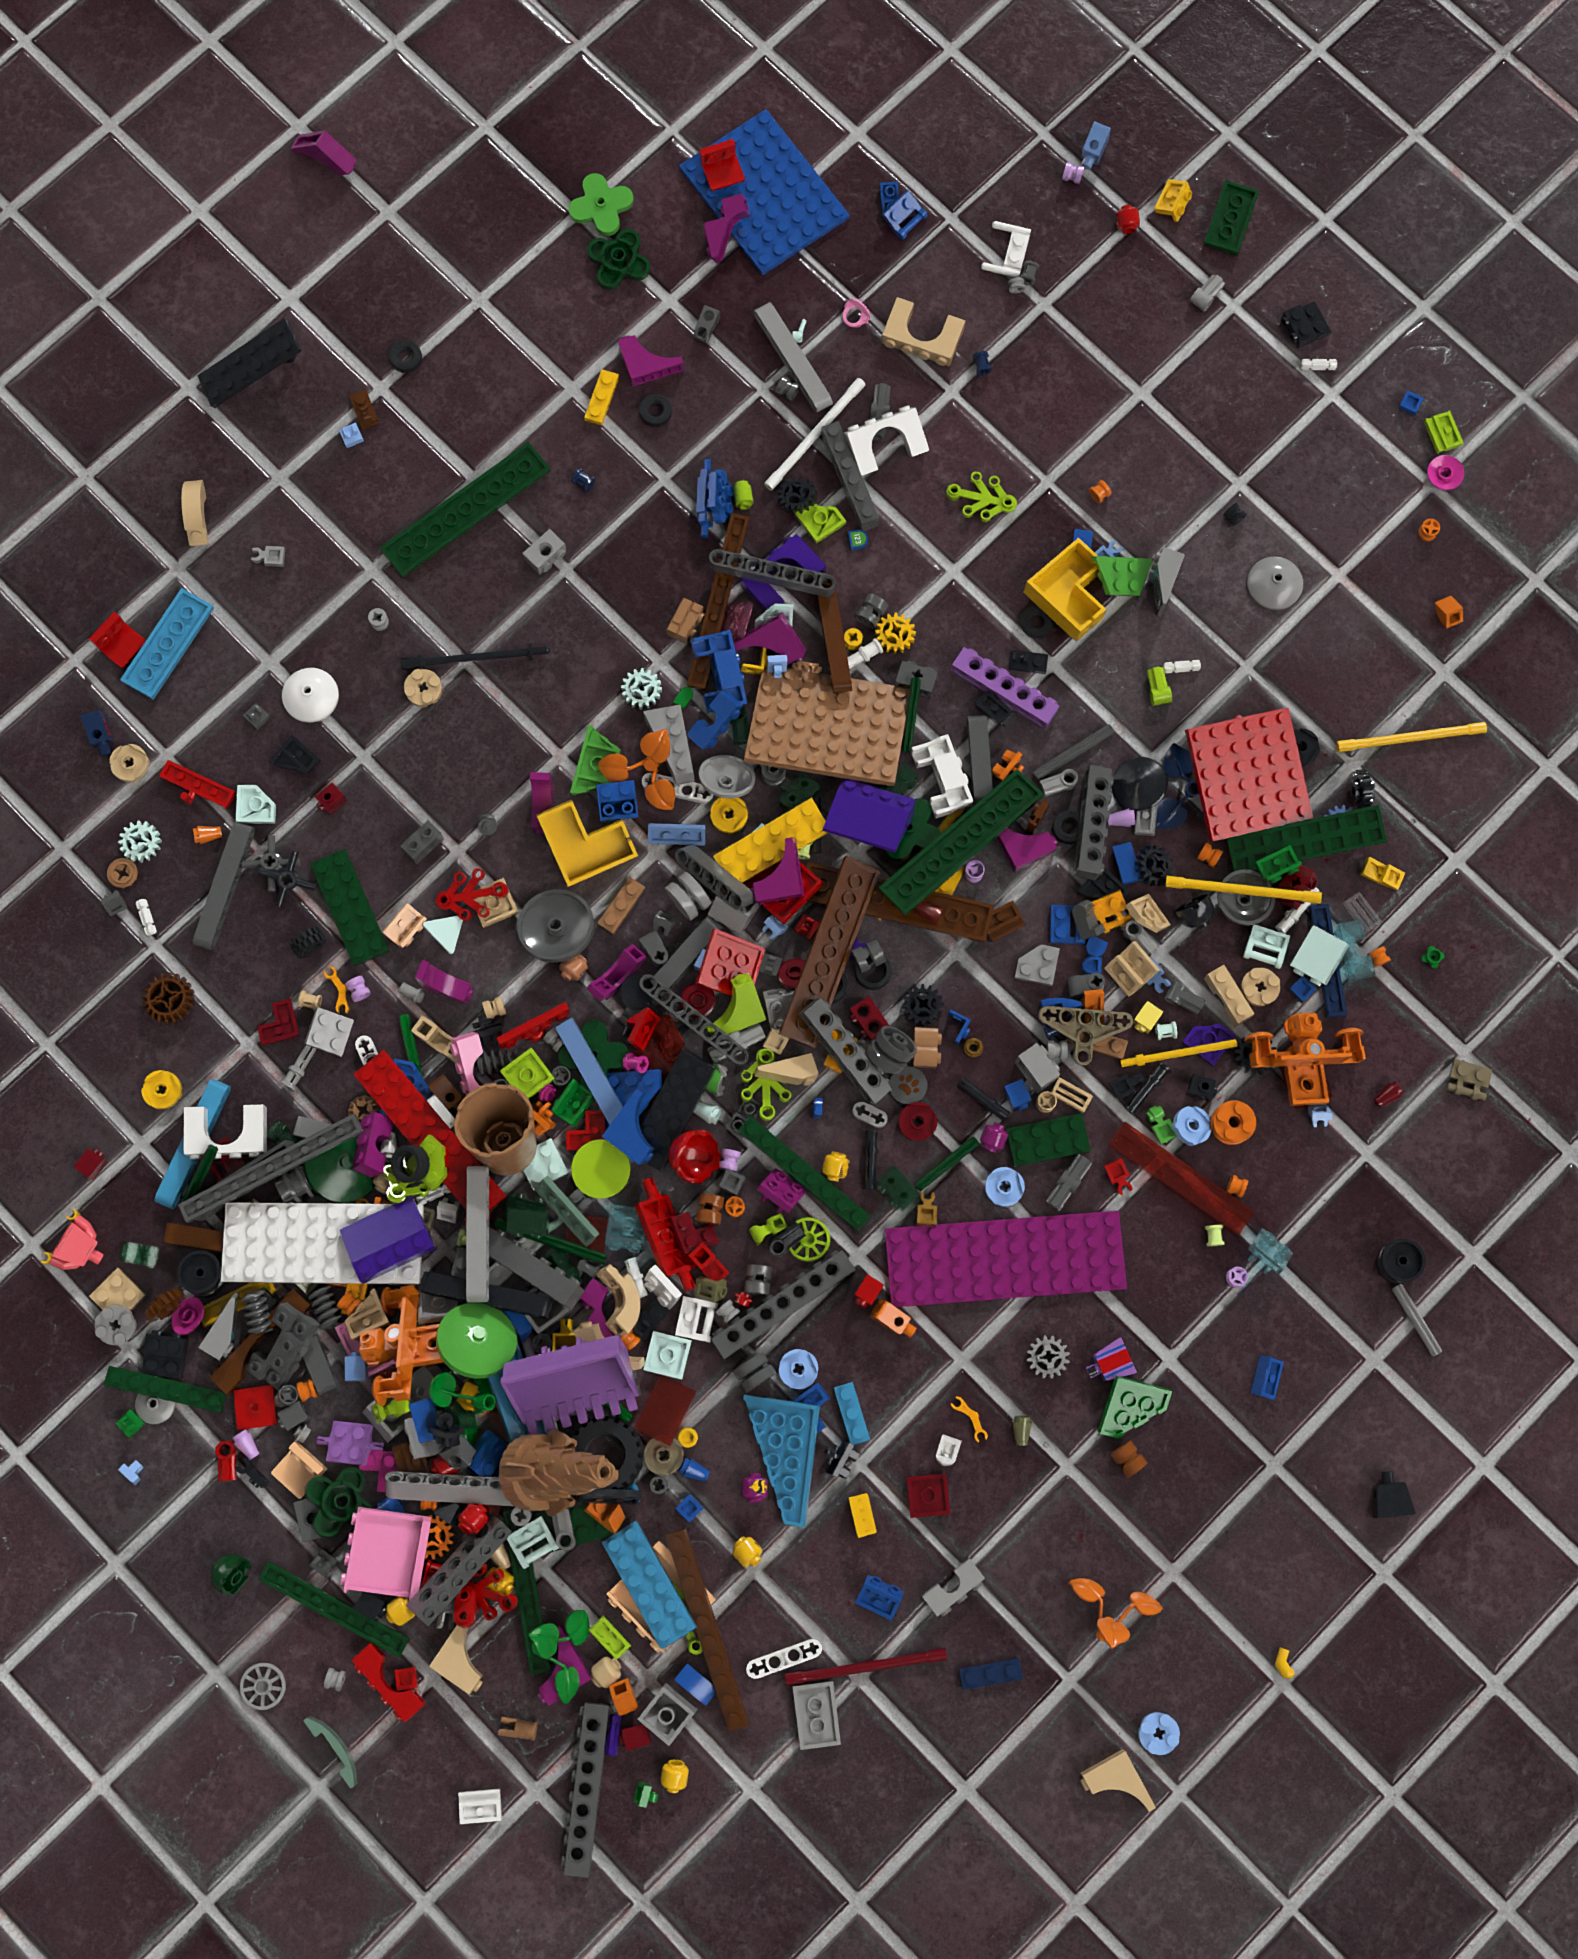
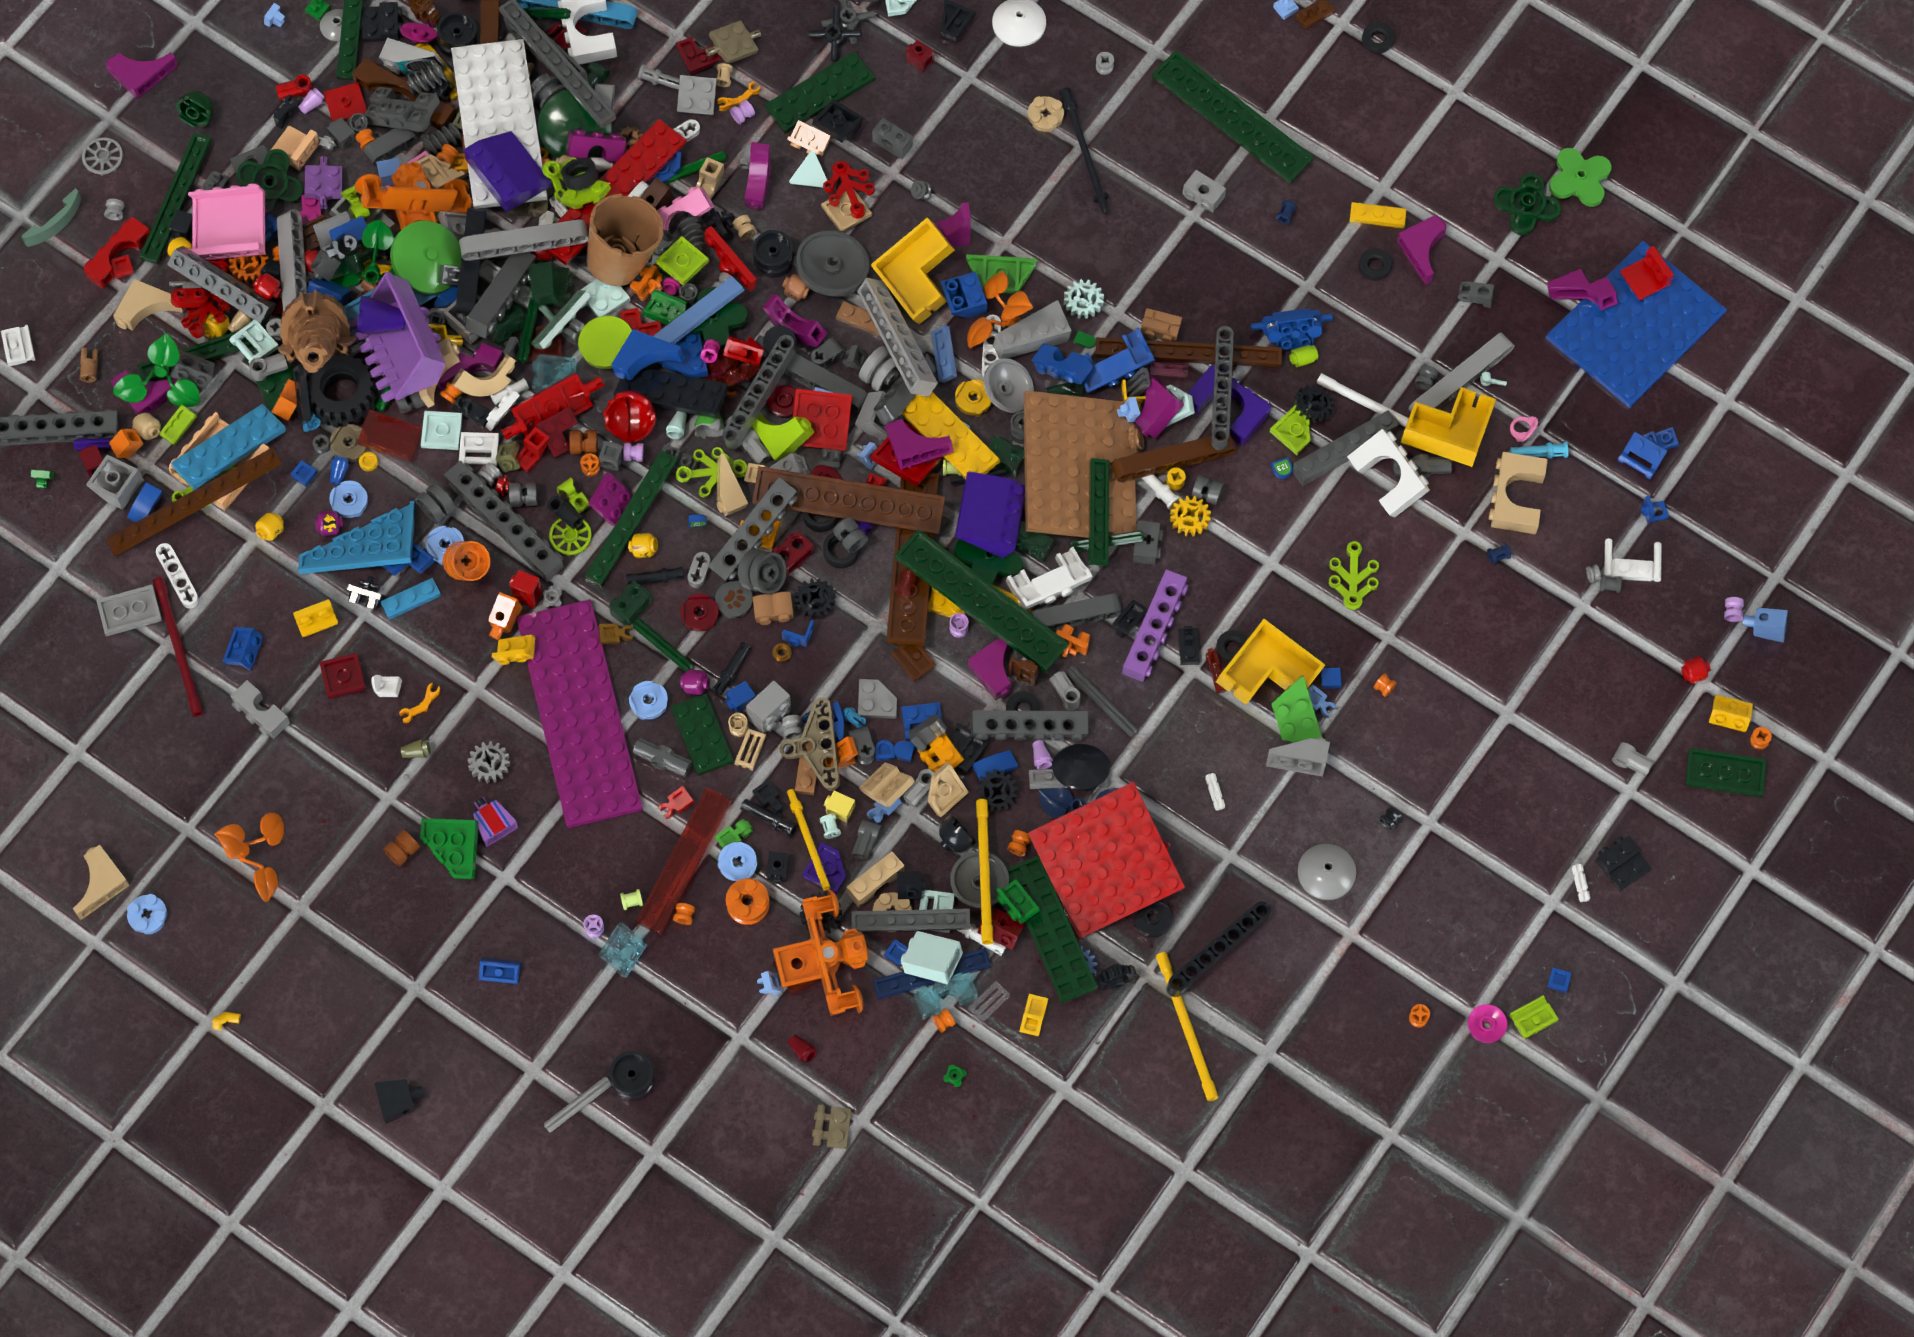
camera: 80 degrees right, 10 degrees down
(173, 1633) = (140, 75): none -> magenta arch
(274, 984) = (733, 42): none -> dark tan plate
(308, 942) = (777, 60): black tyre -> none
(392, 892) = (838, 121): none -> black plate
(501, 1319) = (449, 275): none -> dark grey tile
(532, 994) = (773, 253): none -> black wheel
(539, 1401) = (378, 316): none -> dark purple cone
(553, 1609) = (194, 369): none -> dark grey brick
(659, 872) = (897, 337): none -> light grey brick
(674, 1776) = (61, 498): yellow head -> none
(719, 1469) = (351, 509): none -> light blue plate
(749, 641) = (1135, 384): none -> dark grey tile
(828, 1348) = (476, 562): none -> orange wheel
(857, 369) = (1450, 435): none -> yellow piece
(875, 1262) = (552, 593): none -> light grey plate
(883, 297) = (1549, 450): none -> medium azure pin
(883, 714) = (1098, 512): none -> dark green tile
(930, 1311) = (515, 649): none -> yellow bracket
(960, 222) = (1647, 510): none -> blue bracket
(990, 1674) = (184, 757): dark blue plate -> none
(1055, 989) = (851, 716): none -> dark azure pin
(1057, 641) = (1215, 668): none -> clear red piece
(1159, 691) = (1182, 772): lime piece -> none
(1201, 185) = (1758, 742): none -> orange wheel
(1243, 963) = (910, 885): none -> black brick
(1279, 968) = (911, 920): none -> dark grey plate
(1344, 700) = (1214, 956): none -> black beam
(1449, 611) = (1332, 1046): orange brick -> none

